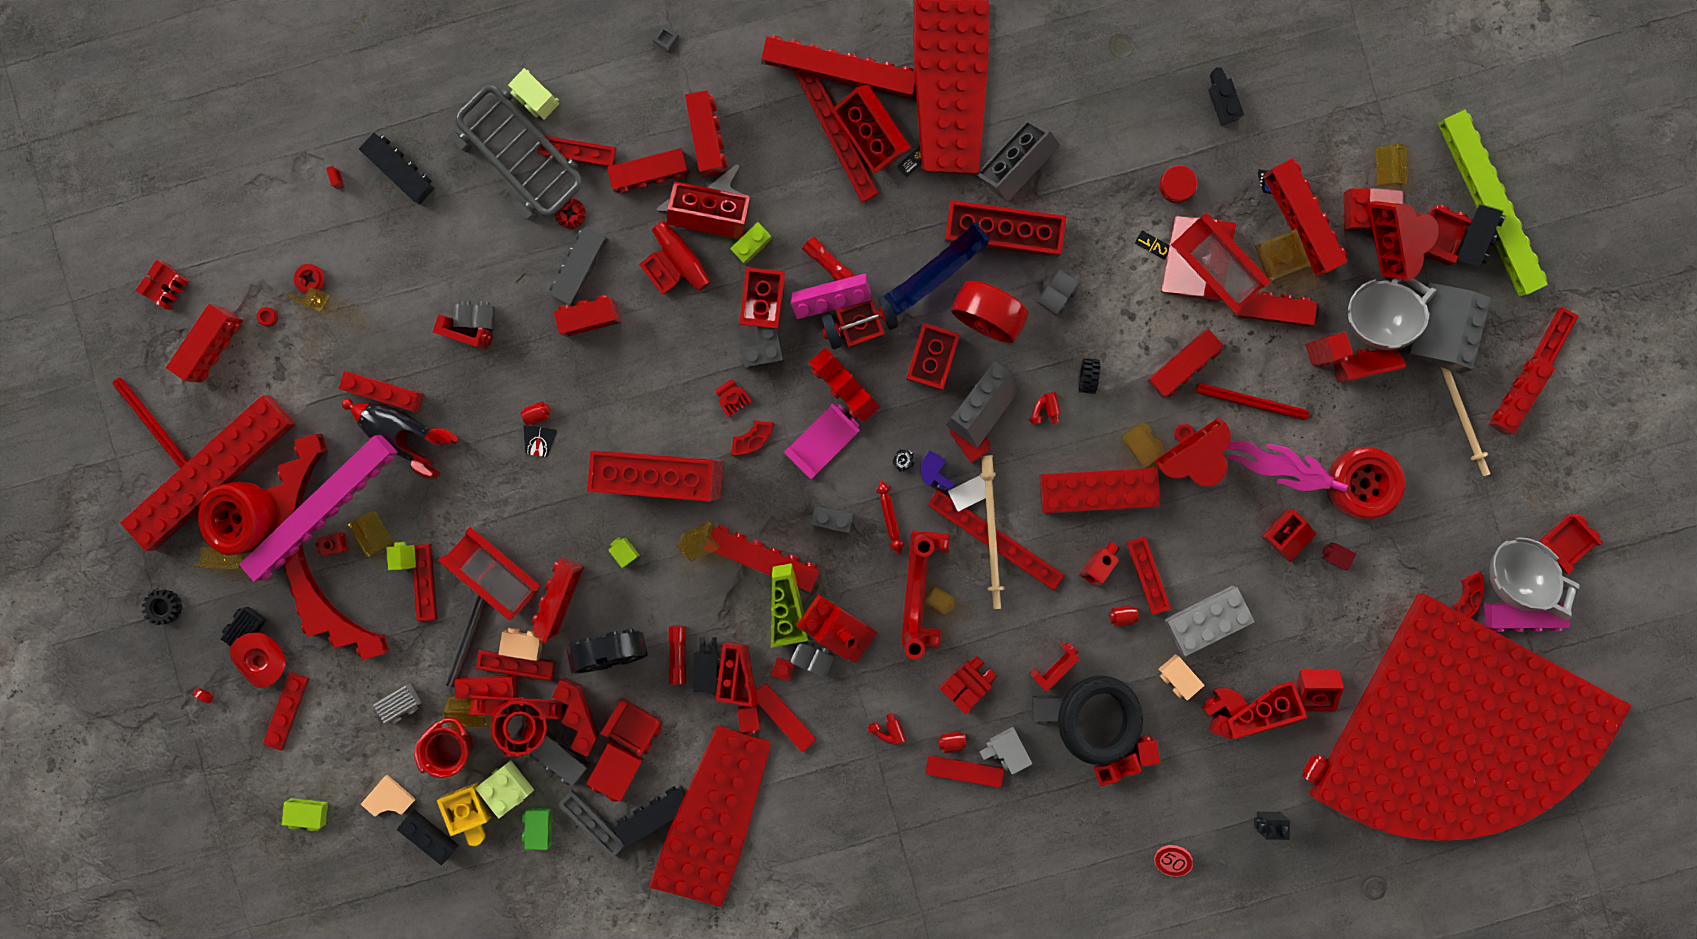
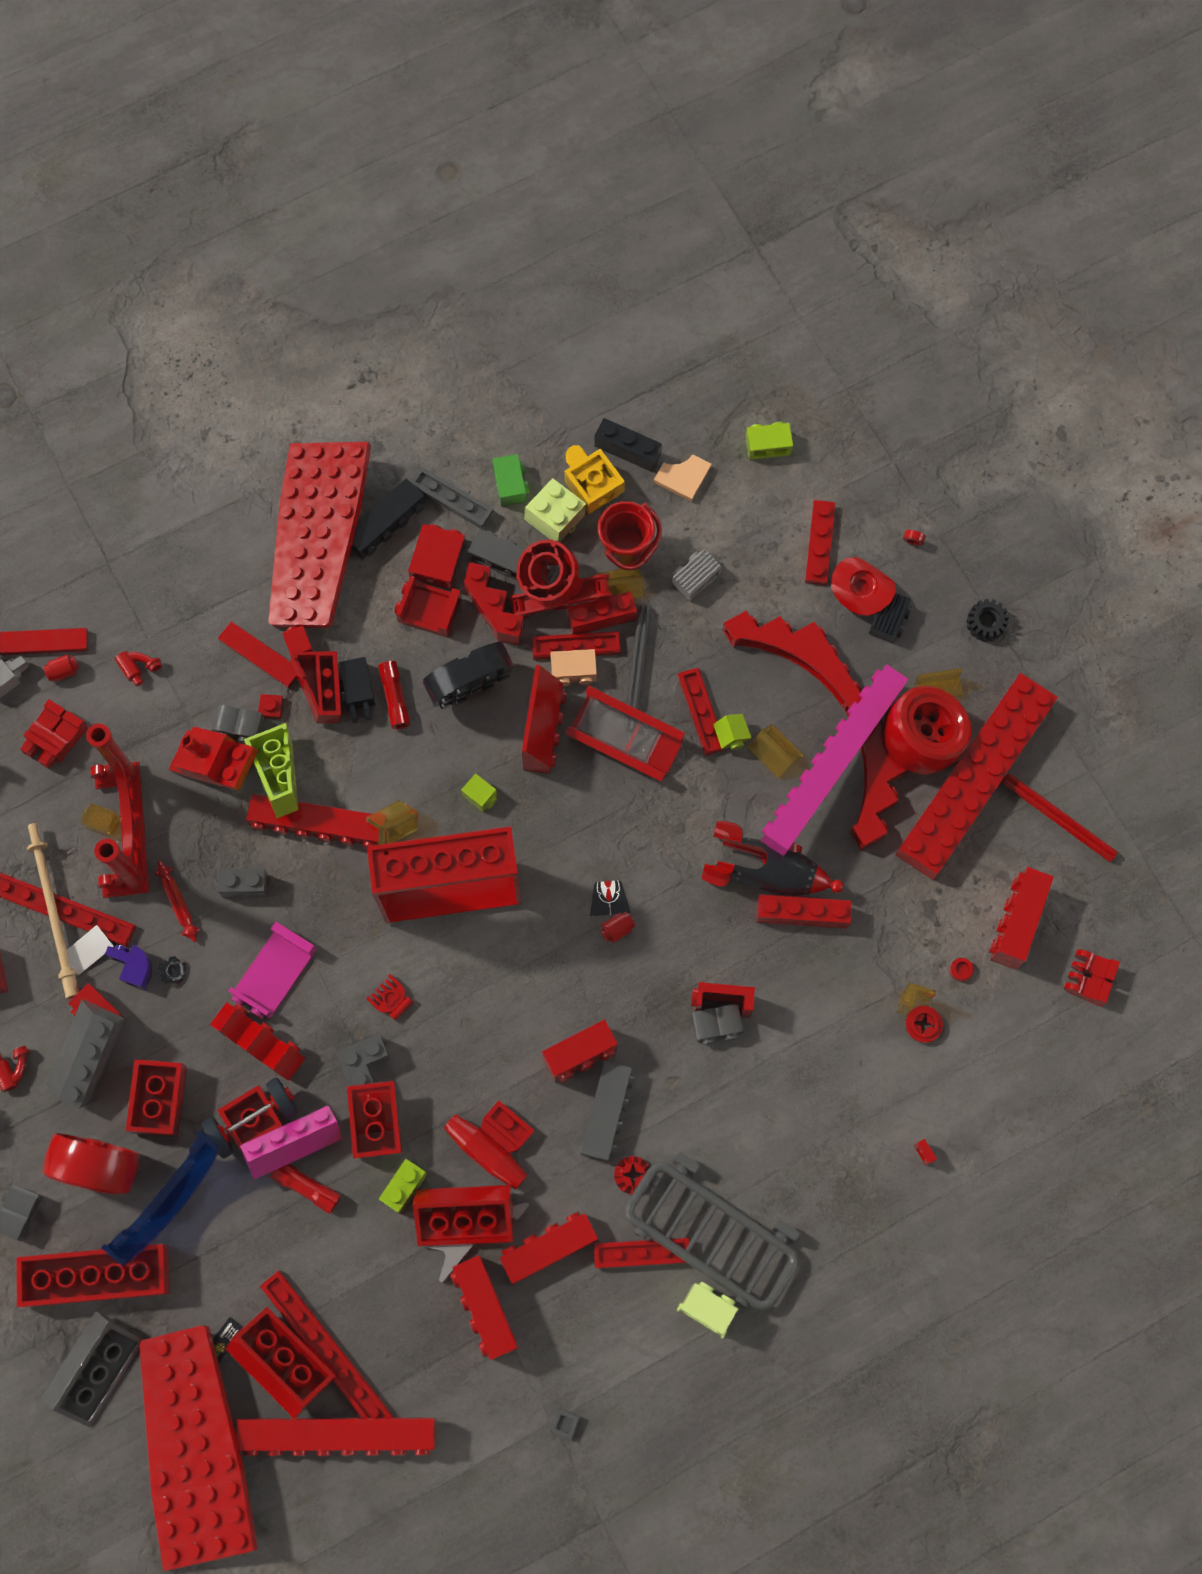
camera: 165 degrees right, 15 degrees down
(337, 541) = (812, 735): red brick -> none
(396, 168) = (854, 1180): black brick -> none
(753, 439) = (356, 955): red tile -> none

